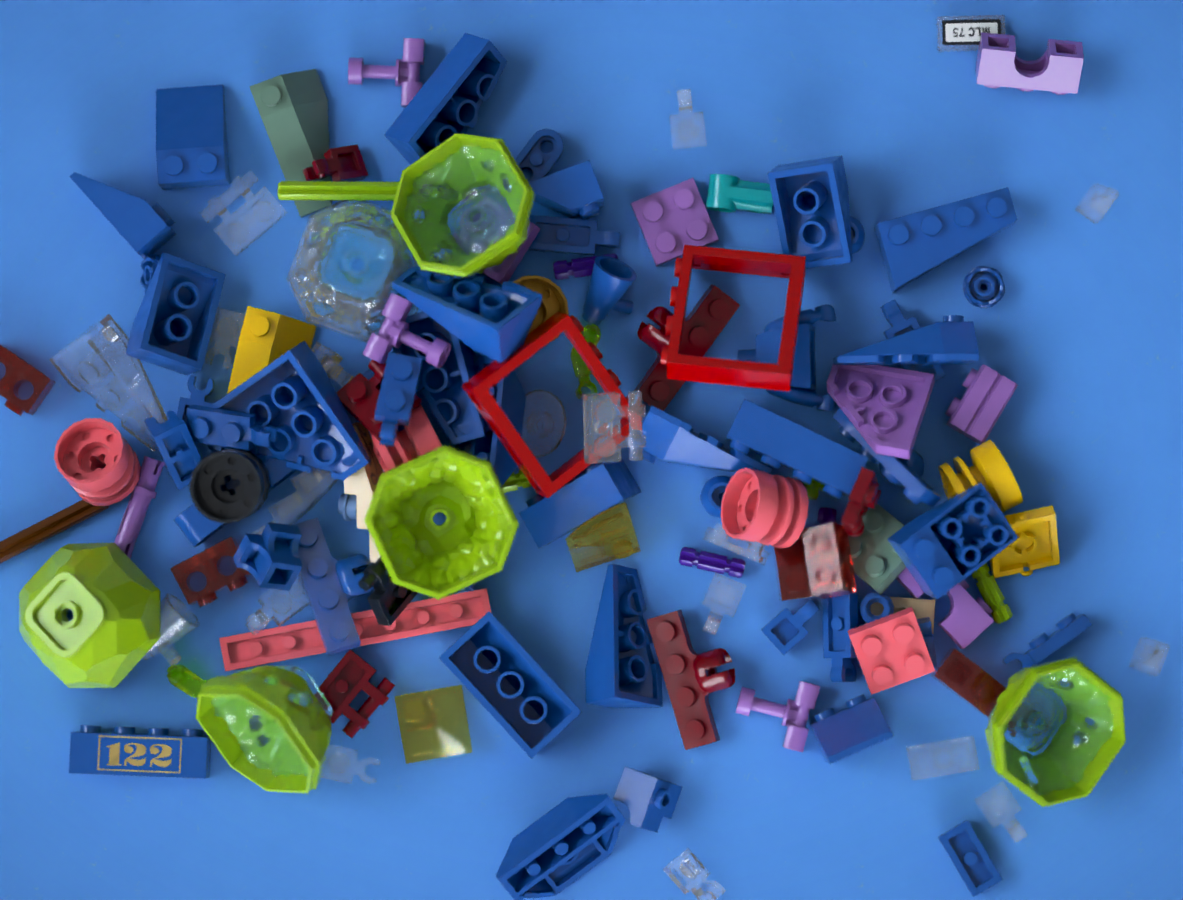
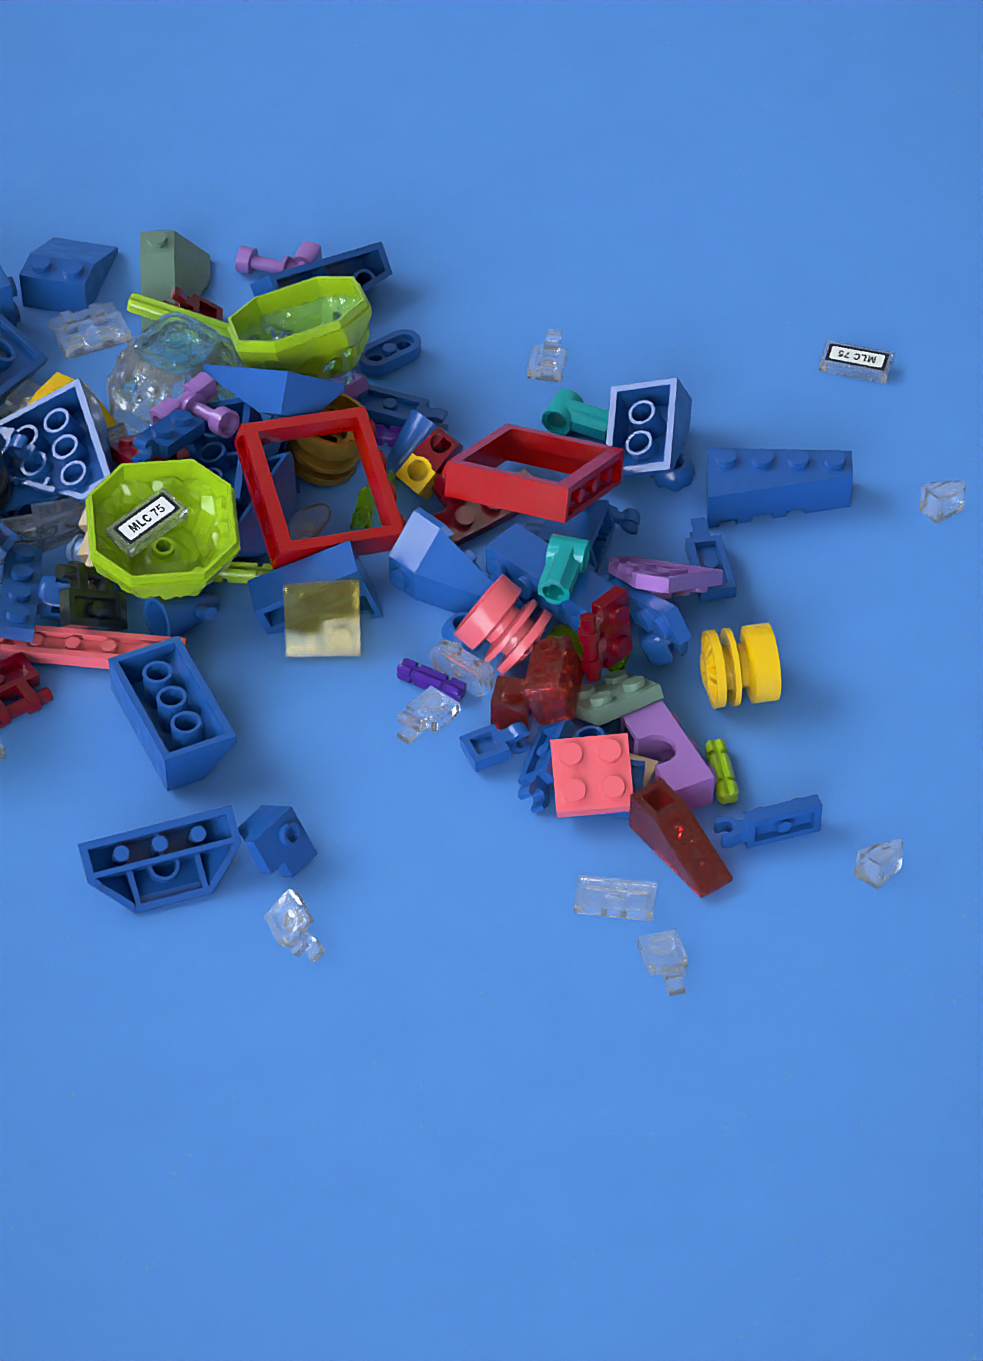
camera: 15 degrees right, 40 degrees down
(427, 525) = (147, 522): none -> tile
(433, 724) = (75, 737): clear yellow plate -> none
(570, 191) = (406, 361): blue slope -> none
(603, 427) = (362, 511): clear plate -> none
(620, 657) = (303, 722): blue wedge -> none
(630, 317) = (429, 461): none -> leg
(674, 220) = (491, 414): medium lavender plate -> none
(689, 678) = (367, 760): dark red plate -> none
(793, 714) = (463, 816): medium lavender bar -> none
(807, 447) = (564, 561): none -> teal piece
(850, 729) = (522, 841): blue slope -> none
(936, 344) = (730, 545): blue wedge -> none
(952, 540) = (689, 677): blue slope -> none
(970, 858) = (612, 987): blue plate -> none
(981, 403) = (775, 604): medium lavender brick -> none
(991, 278) = (802, 535): blue plate -> none
(1035, 545) = (770, 725): yellow plate -> none
(1055, 71) = (934, 392): arch -> none
(1055, 731) = (746, 852): clear light blue rock -> none

